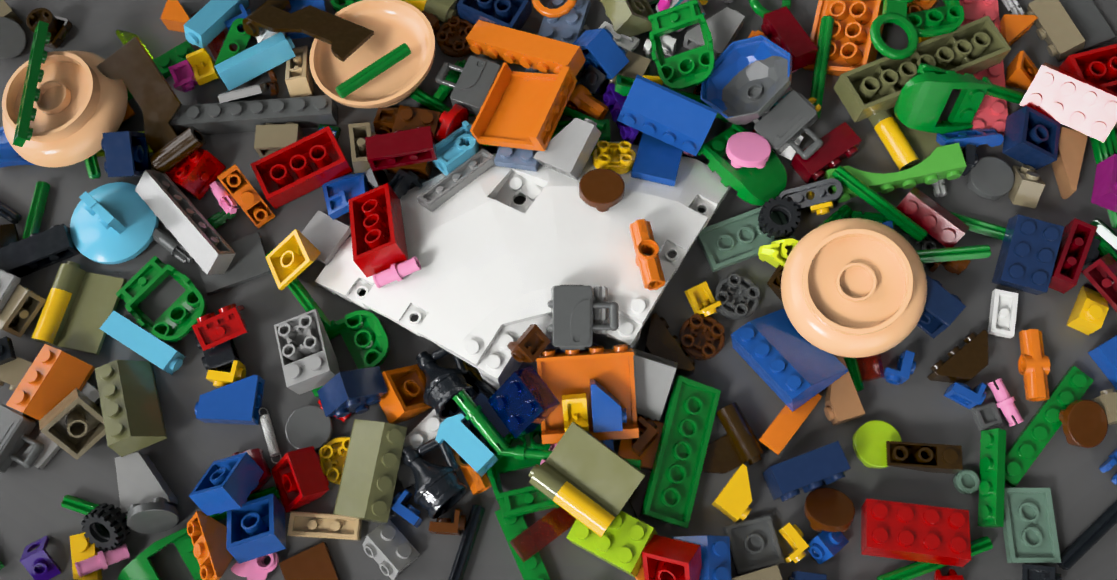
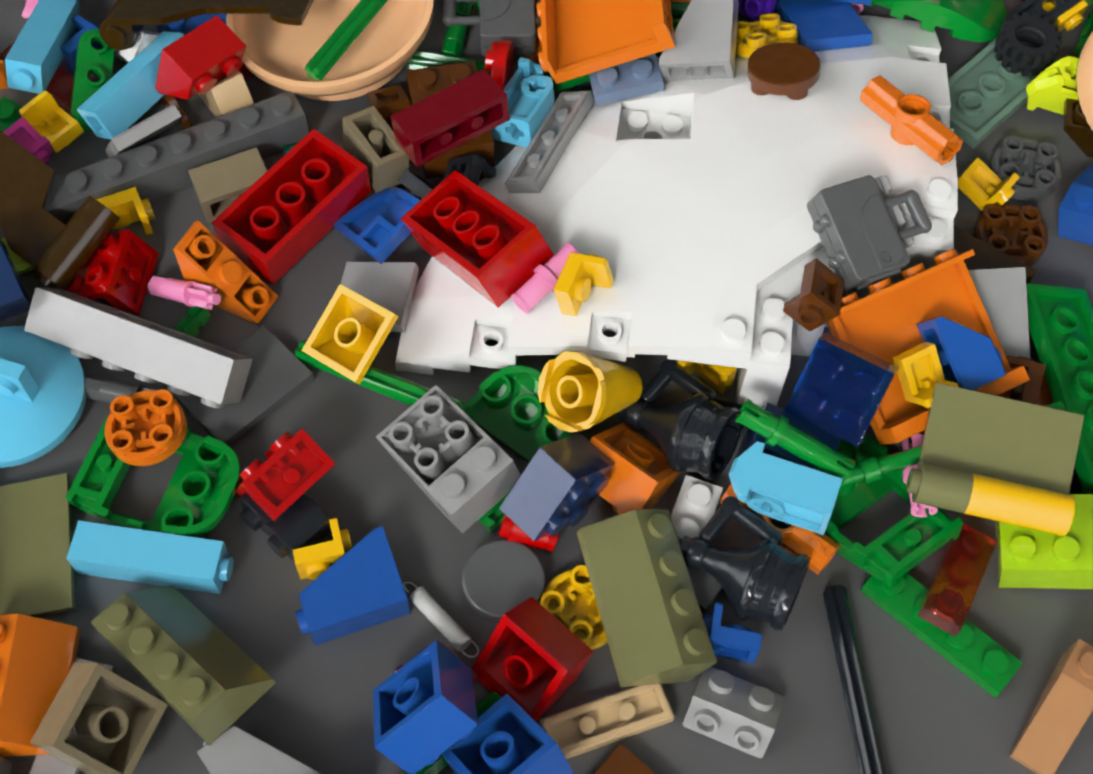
camera: 30 degrees left, 10 degrees down
(167, 271) = (145, 427): none -> orange tile
(218, 135) = (129, 208): none -> yellow bracket
(284, 62) = (199, 60): none -> red slope
(393, 345) = (585, 390): none -> yellow cone
(407, 281) = (576, 280): none -> yellow bracket
(445, 527) = (802, 638): reddish brown bracket -> none

